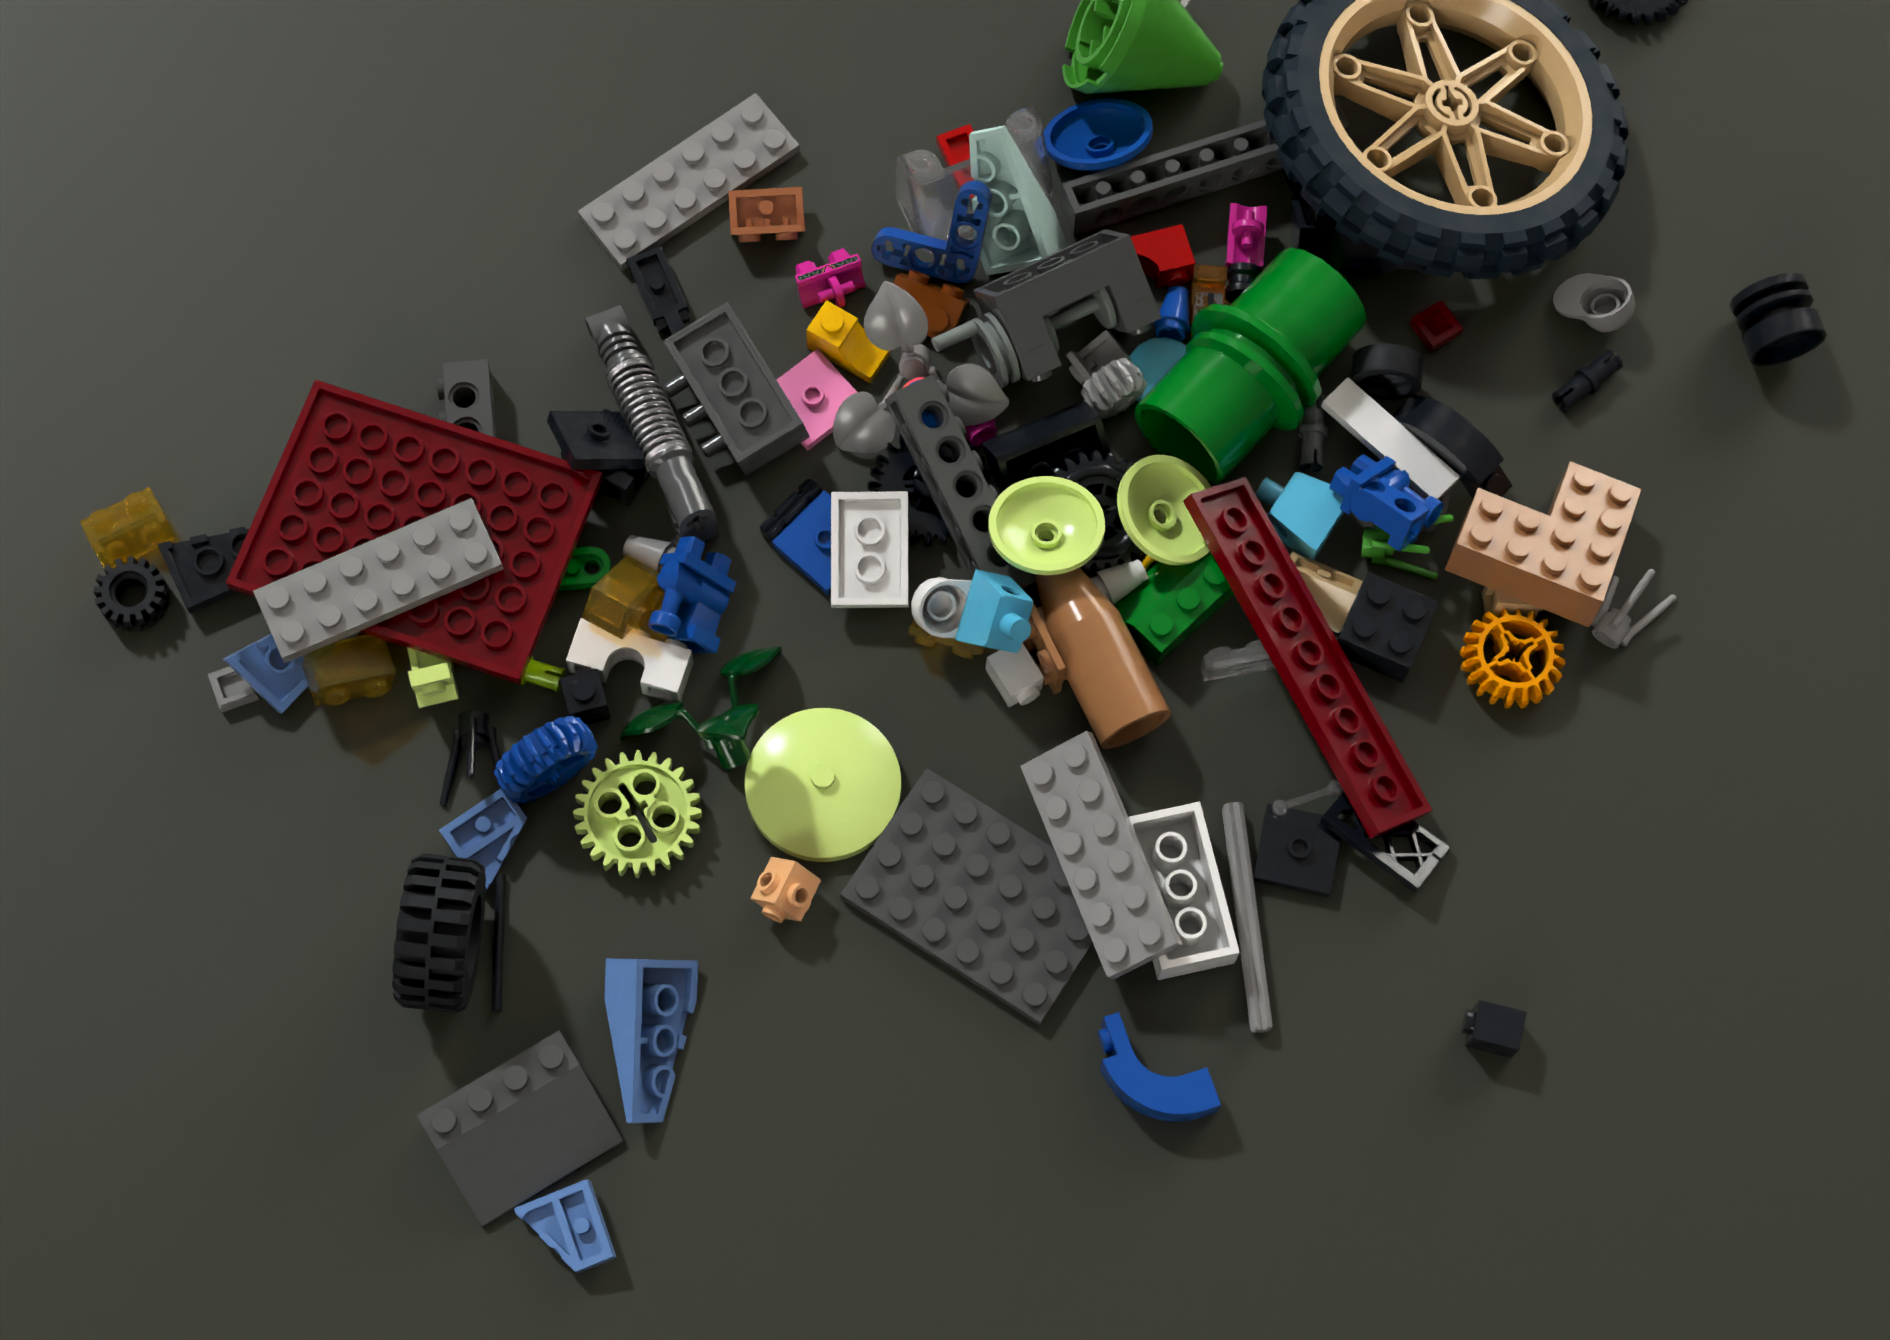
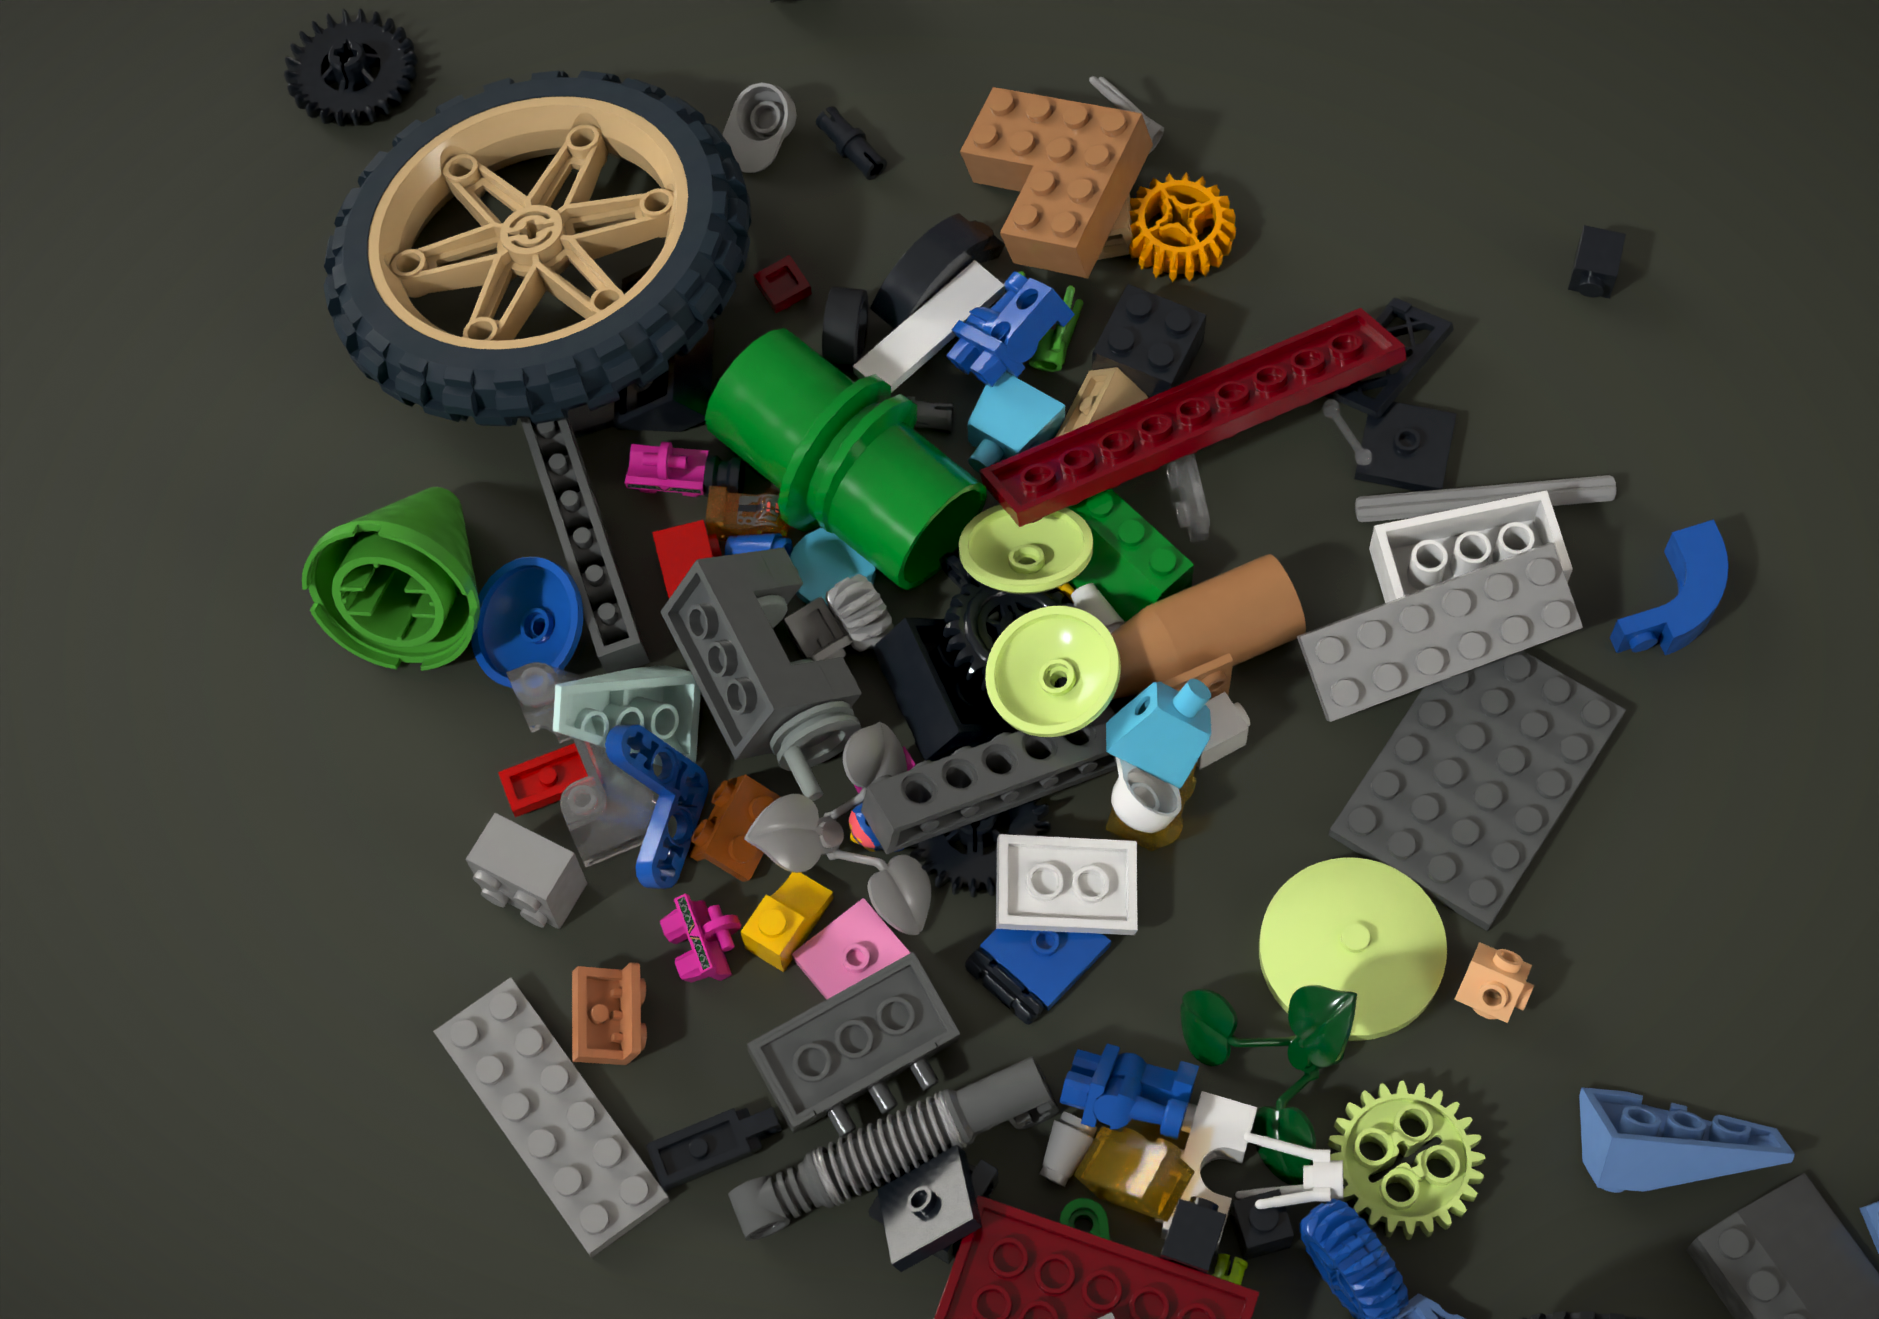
camera: 80 degrees left, 5 degrees down
(565, 633) = (1194, 1234): none -> black brick
(613, 735) = (1320, 1181): none -> white plant
(881, 135) = (526, 872): none -> light grey brick

